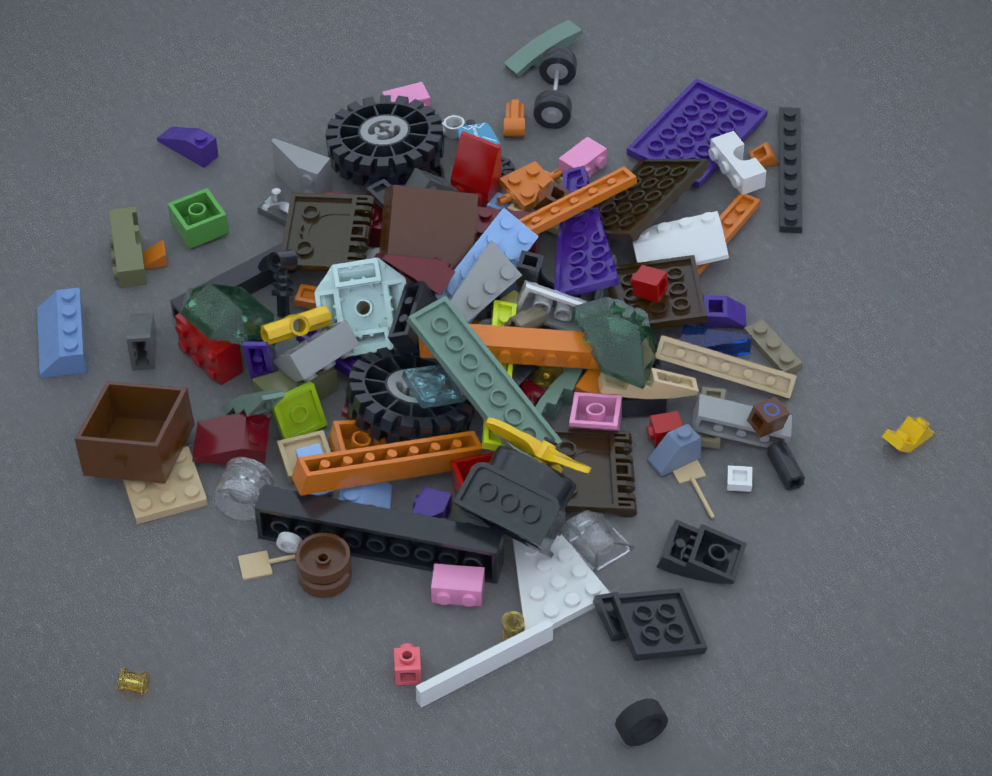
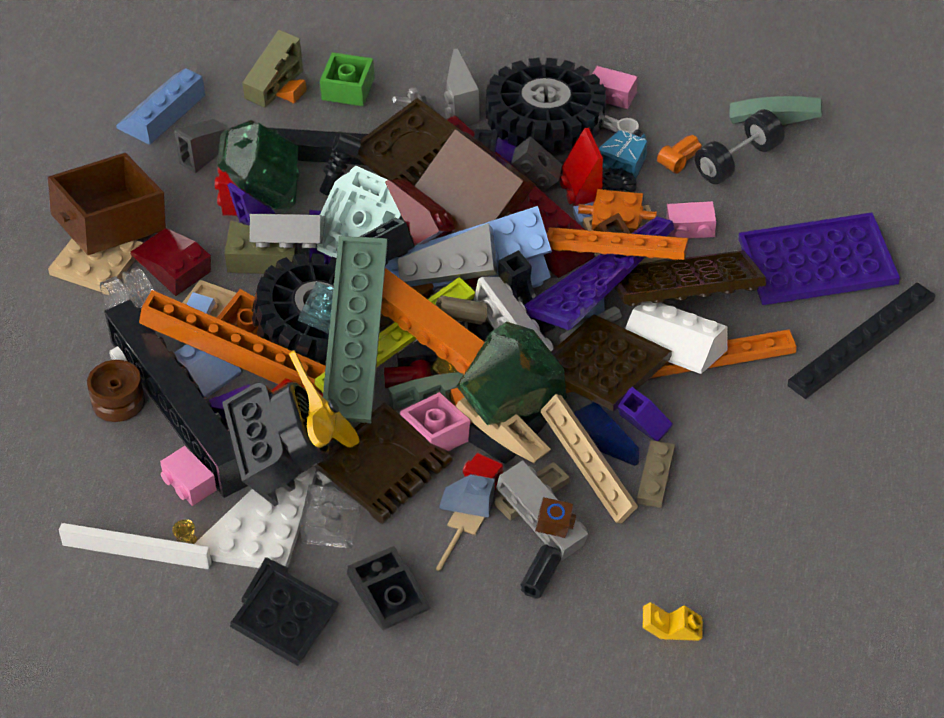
camera: 45 degrees right, 0 degrees up
(191, 143) = (416, 23): dark purple slope -> none
(254, 403) = (201, 237): sand green slope -> none
(258, 564) = (84, 360): tan piece -> none
(299, 412) = (234, 267): lime plate -> none
(307, 320) = (307, 200): yellow piece -> none
(408, 662) = (85, 506): coral brick -> none
(641, 722) = (175, 674): black tyre -> none
(649, 283) = (598, 347): red brick -> none
(728, 154) = (810, 288): white arch -> none
(739, 478) = (492, 554): white plate -> none
(765, 155) = (853, 314): orange slope -> none

